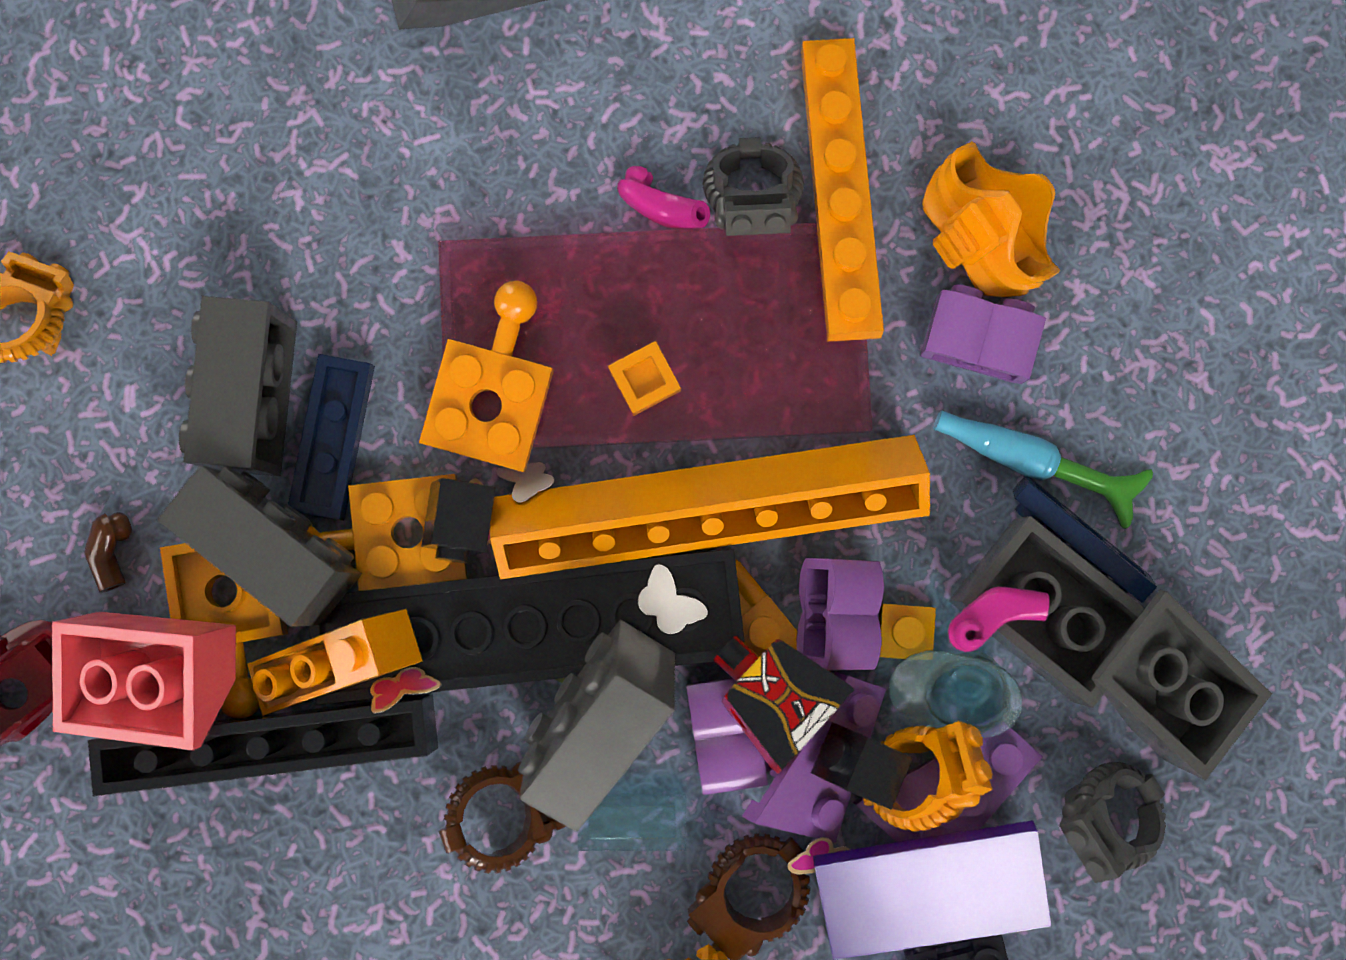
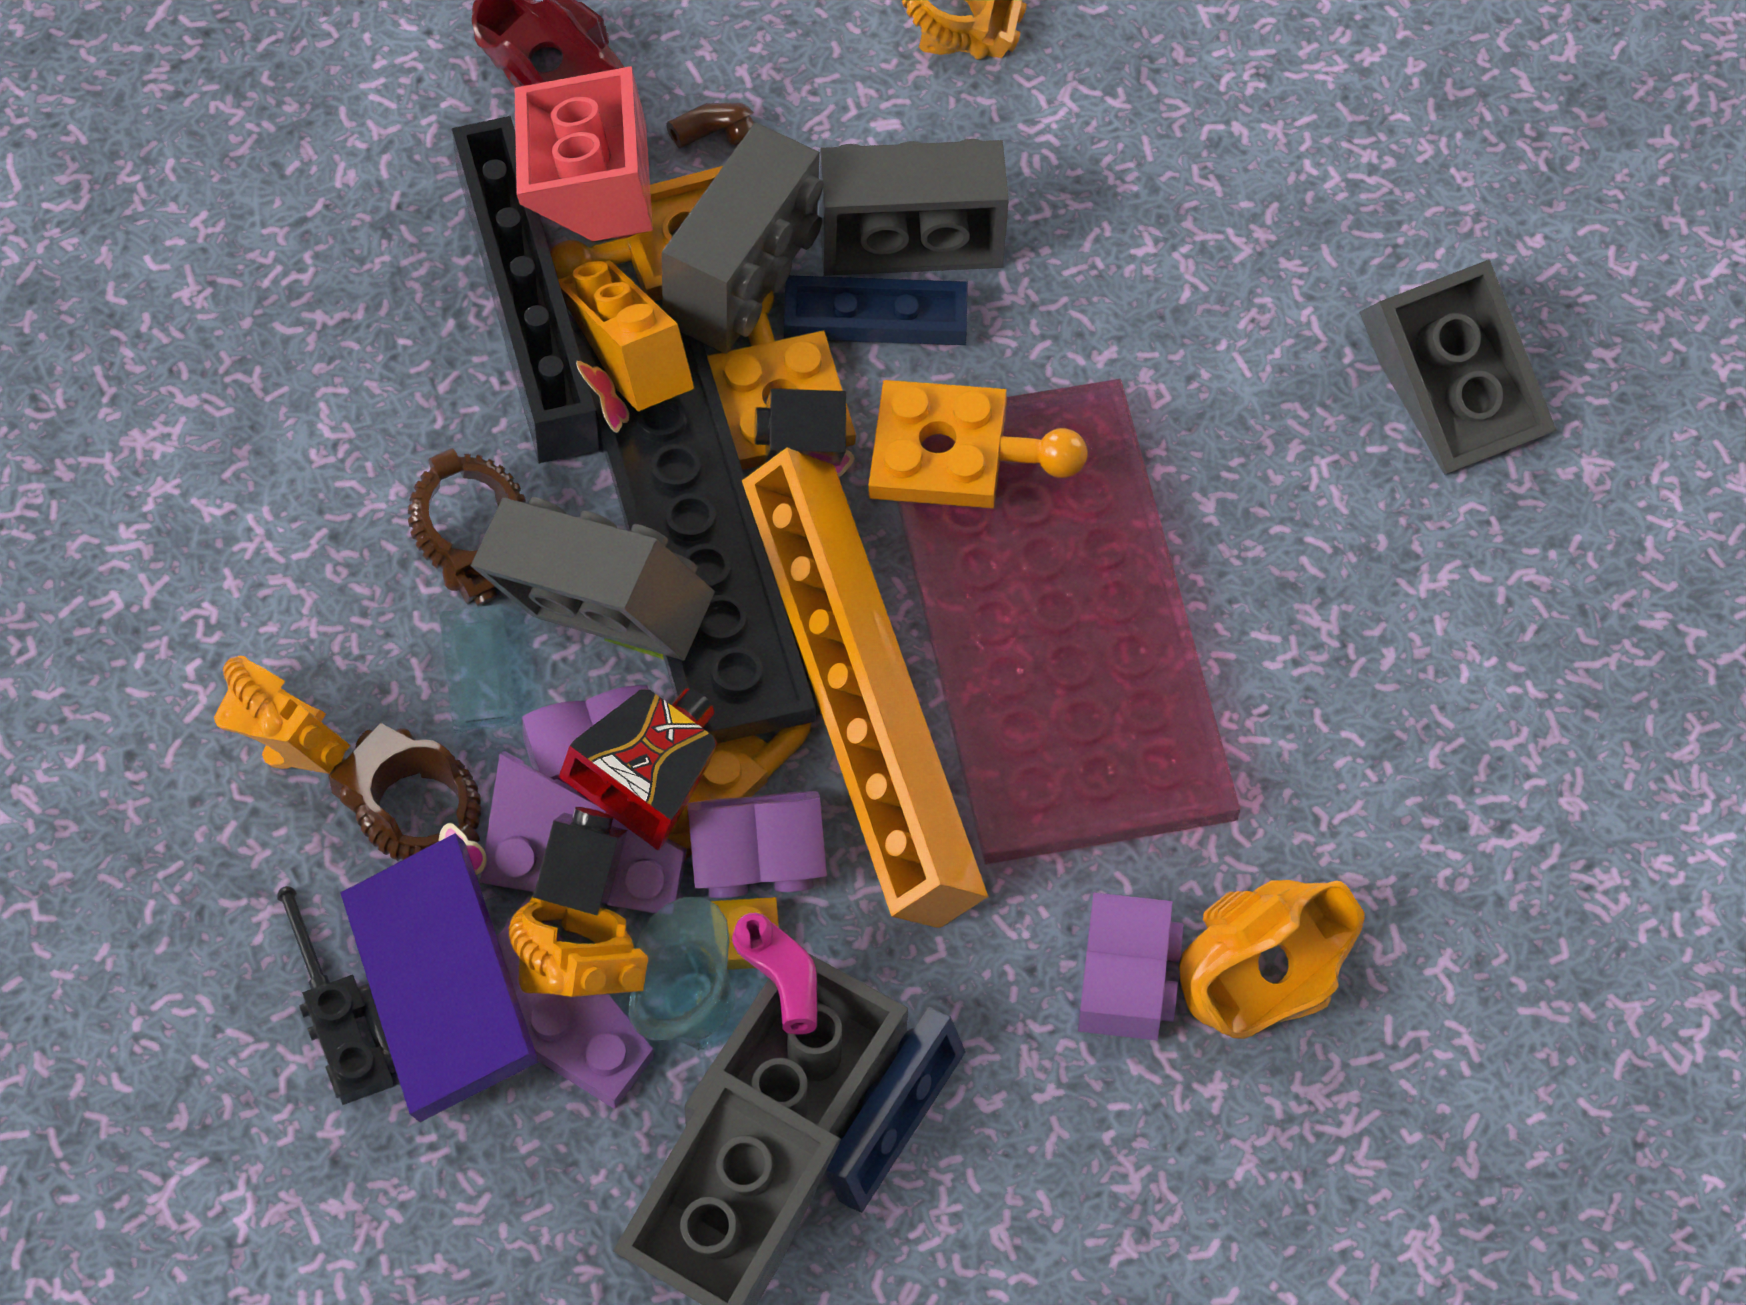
camera: 80 degrees right, 25 degrees down
(527, 482) = (860, 505): white sticker -> none
(644, 378) = (999, 592): light orange plate -> none
(659, 206) = (1213, 597): dark pink arm -> none
(671, 609) = (735, 652): white sticker -> none
(753, 211) = (1231, 704): dark grey piece -> none
(841, 191) = (1273, 779): light orange plate -> none
(1041, 460) = (984, 1058): medium azure piece -> none
(1092, 832) = (513, 1145): dark grey piece -> none

